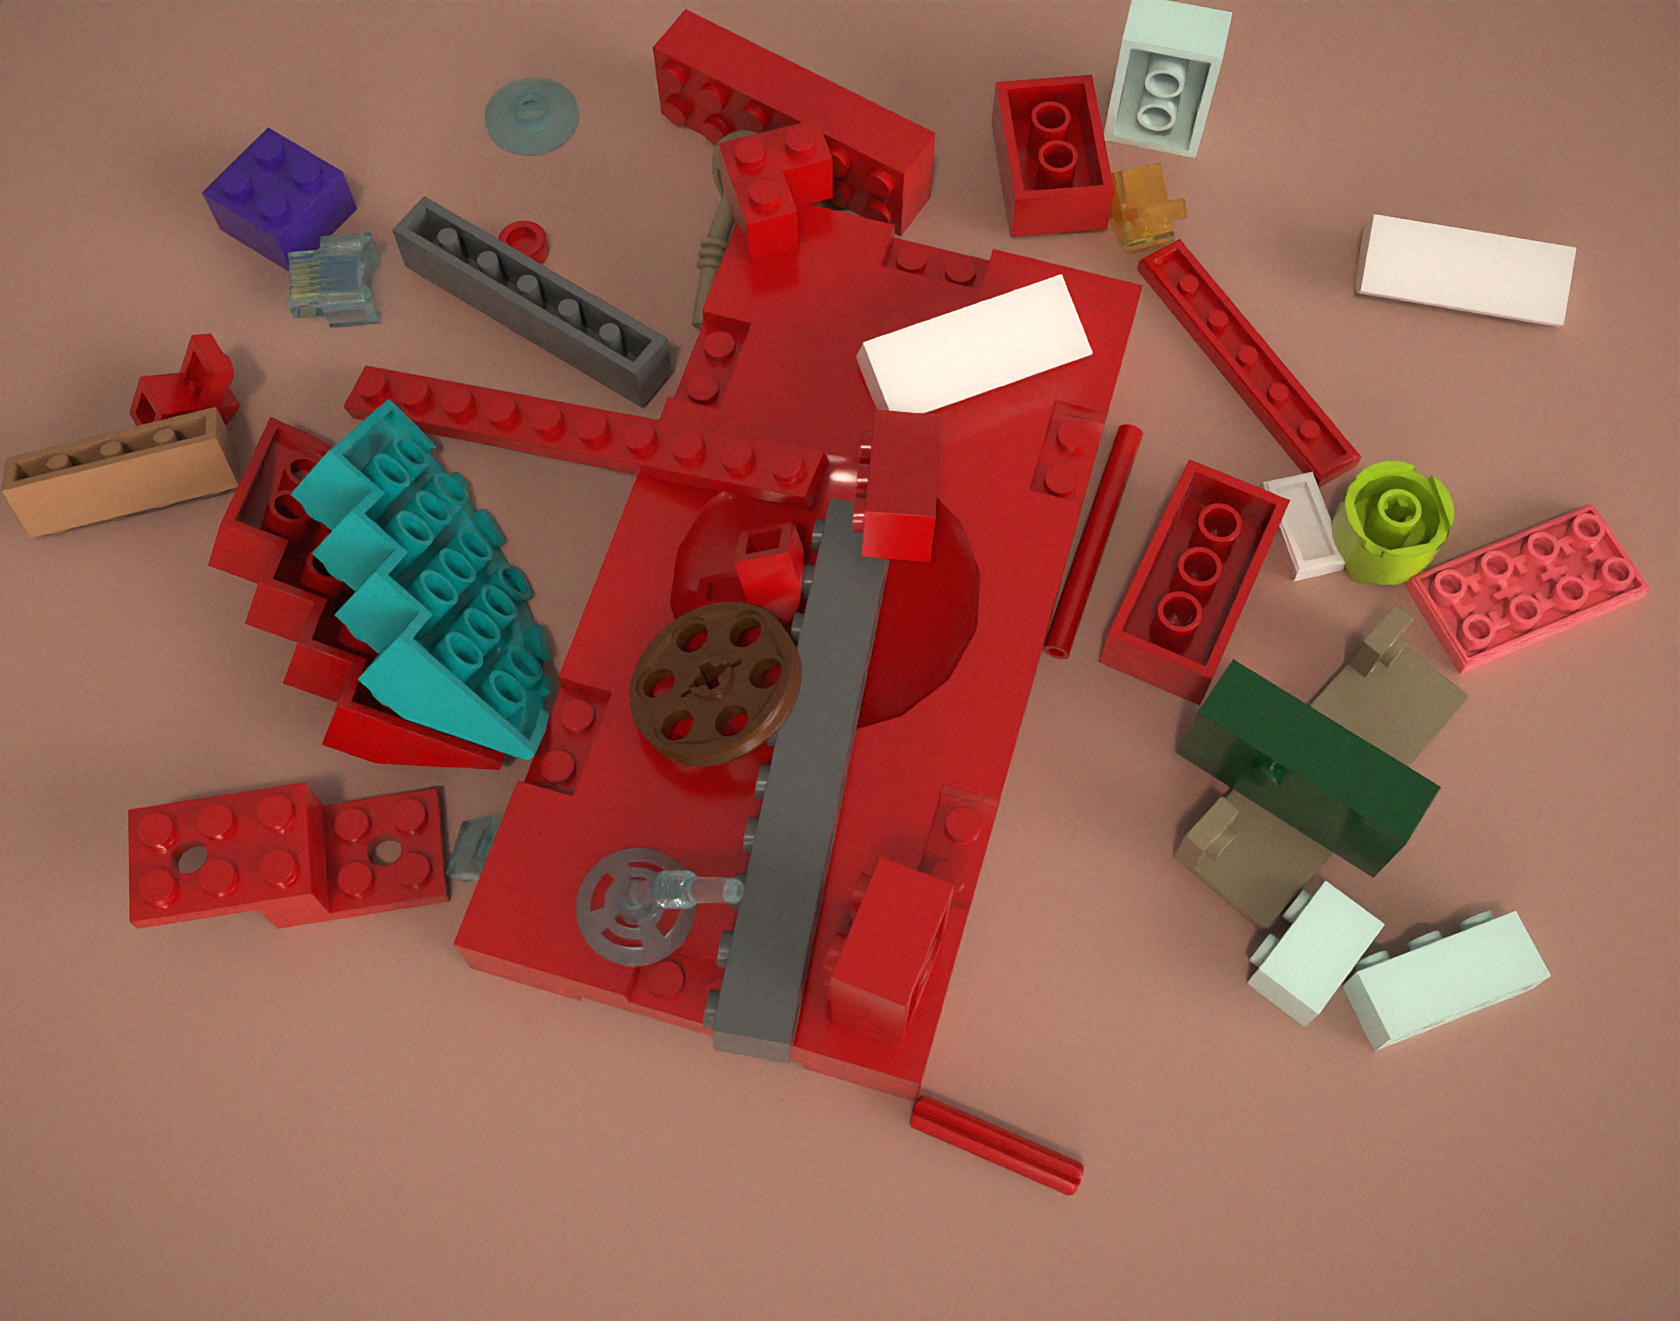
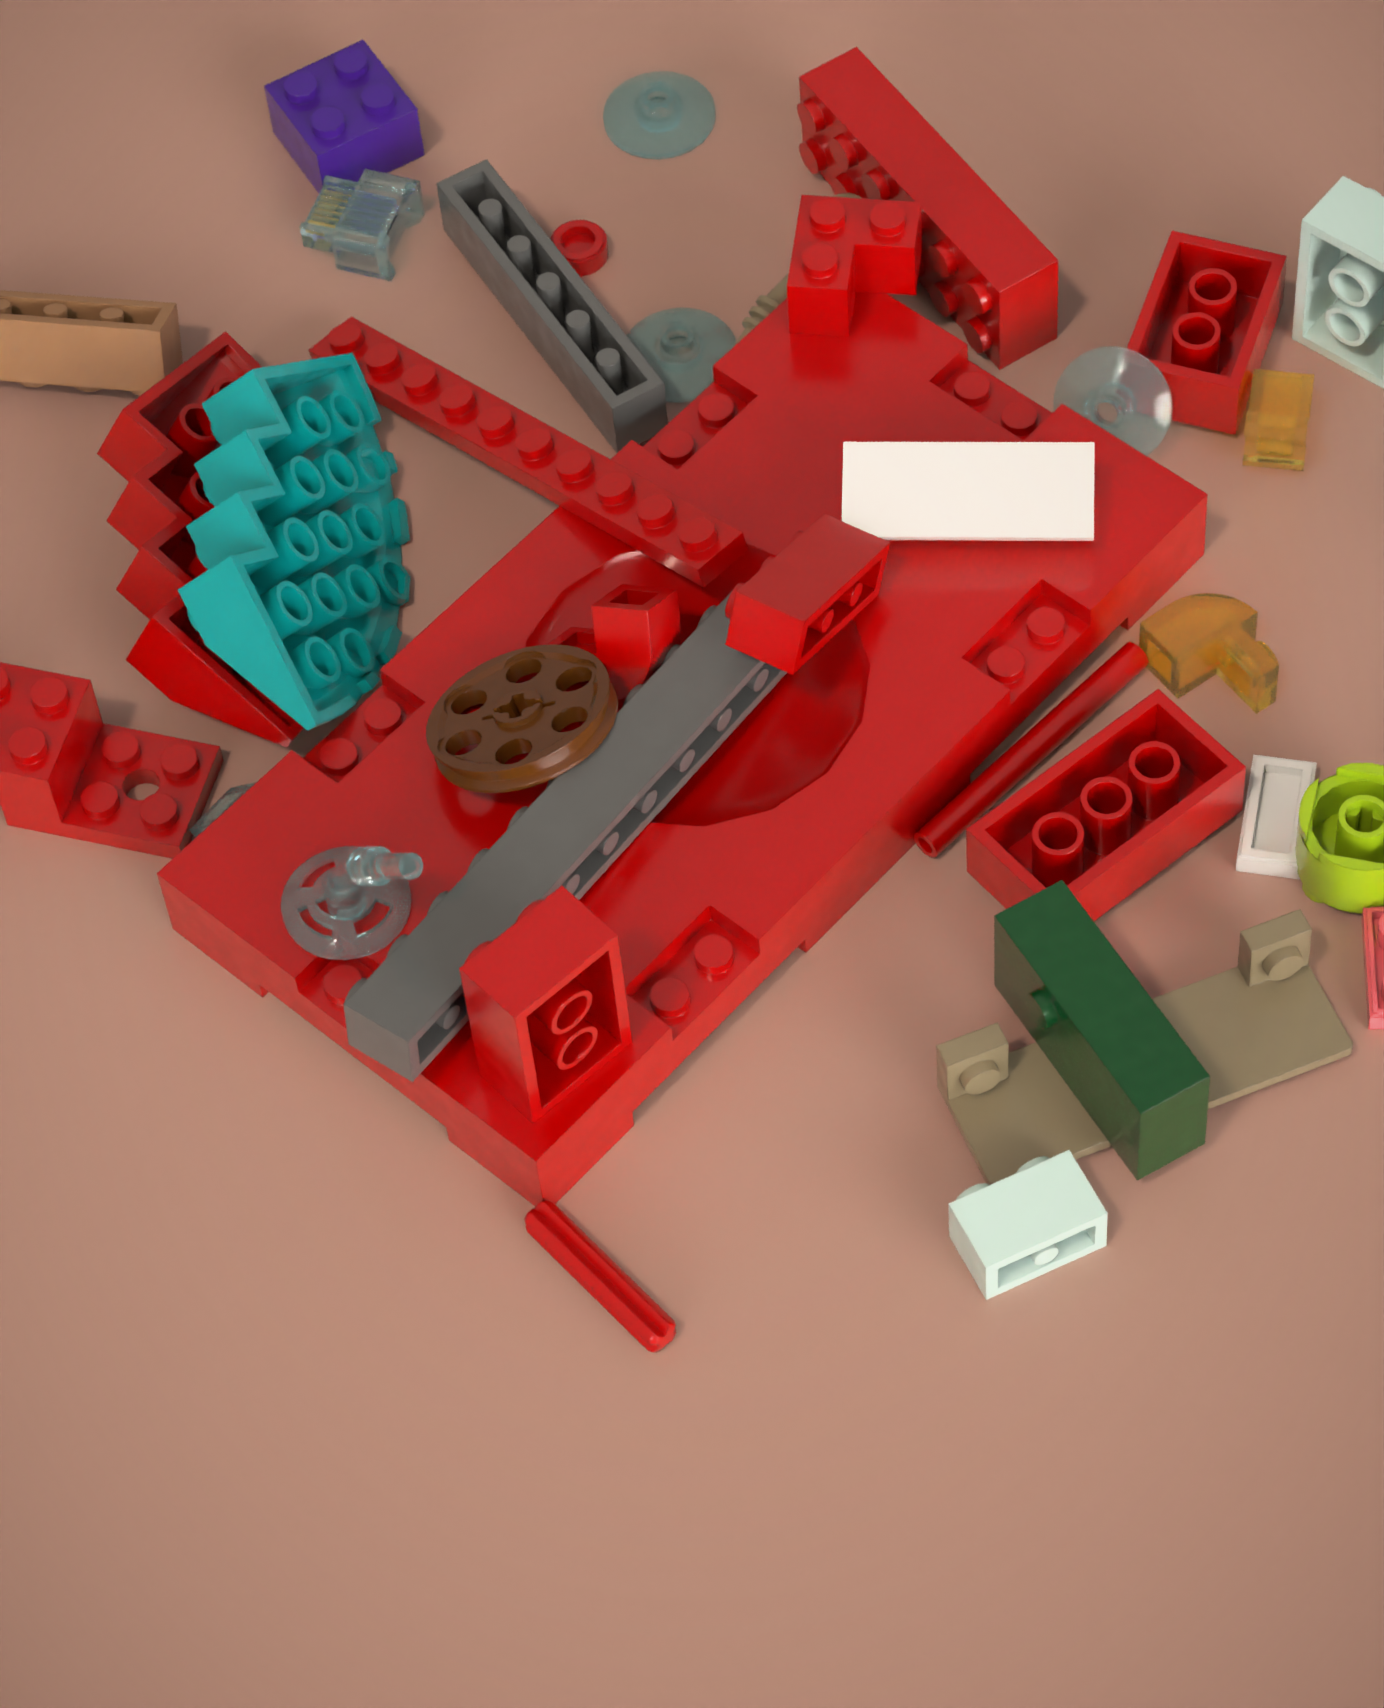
camera: 30 degrees right, 10 degrees down
(197, 387) = (171, 279): red brick -> none
(670, 304) = (682, 348): none -> clear light blue dish
(1017, 214) = (1127, 383): none -> clear light blue dish
(1187, 398) = (1206, 638): none -> clear yellow brick
(1248, 363) = (1314, 622): red tile -> none
(1444, 978) = (1152, 1300): light aqua brick -> none

